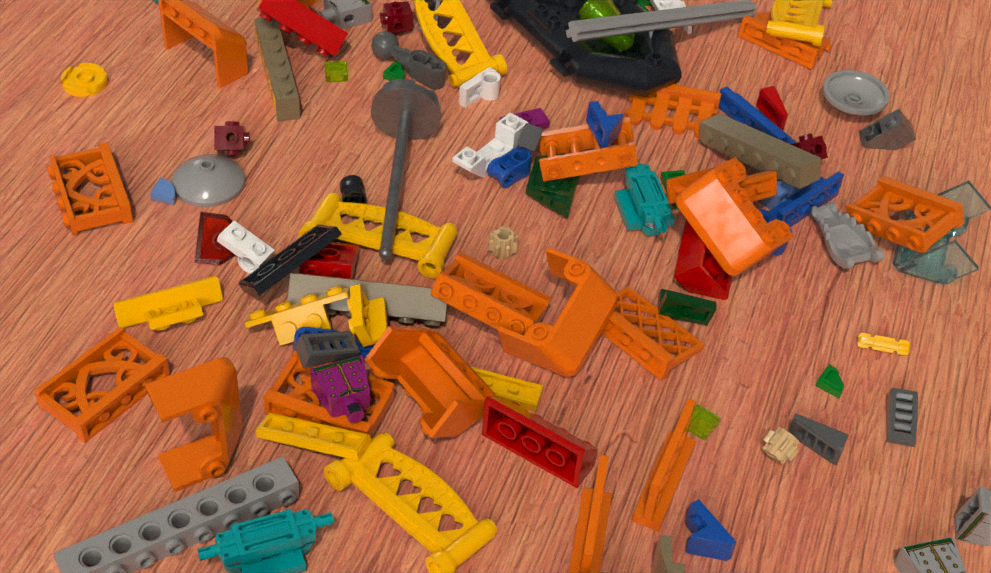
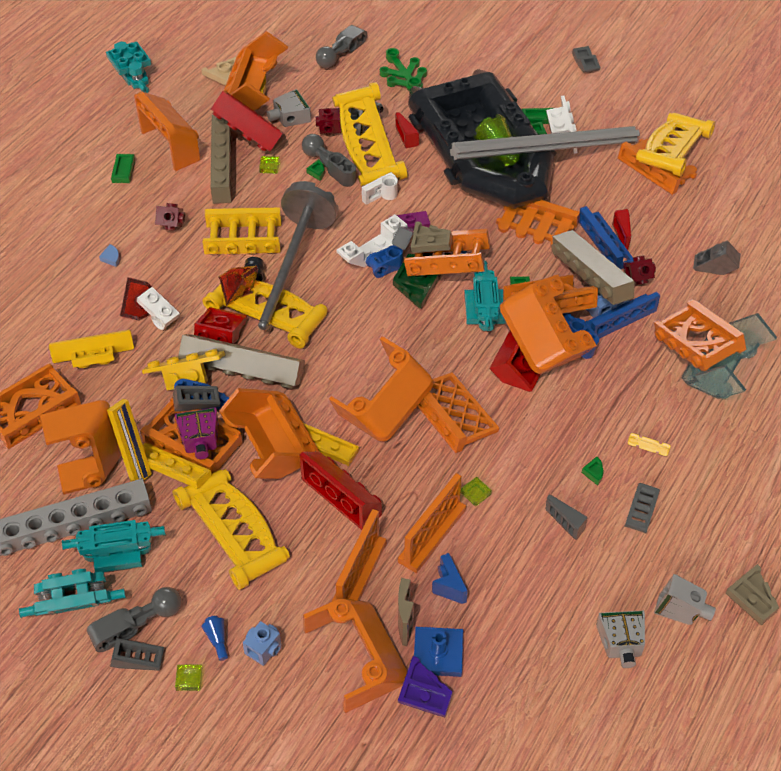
camera: 15 degrees right, 5 degrees up
(84, 80) = (72, 155): yellow tile -> none
(90, 162) = (63, 268): orange fence -> none
(153, 89) = (123, 168): none -> green tile
(208, 180) = (147, 249): light grey dish -> none
(259, 408) = (129, 440): none -> yellow tile
(289, 259) = (187, 322): black tile -> none
(322, 133) = (242, 218): none -> yellow fence
(340, 204) = (237, 282): none -> clear red slope
(368, 316) = (231, 374): yellow bracket -> none
(490, 295) = (308, 359): orange fence -> none
(491, 23) = (406, 131): none -> red slope
(503, 243) = (360, 325): tan gear -> none
(565, 134) = (430, 239): none -> dark tan wing
(603, 127) = (463, 236): blue slope -> none
(686, 307) = (492, 394): dark green panel -> none
(780, 445) = (531, 518): tan gear -> none
(844, 238) = (645, 349): light grey animal -> none
(855, 92) = (699, 220): light grey dish -> none

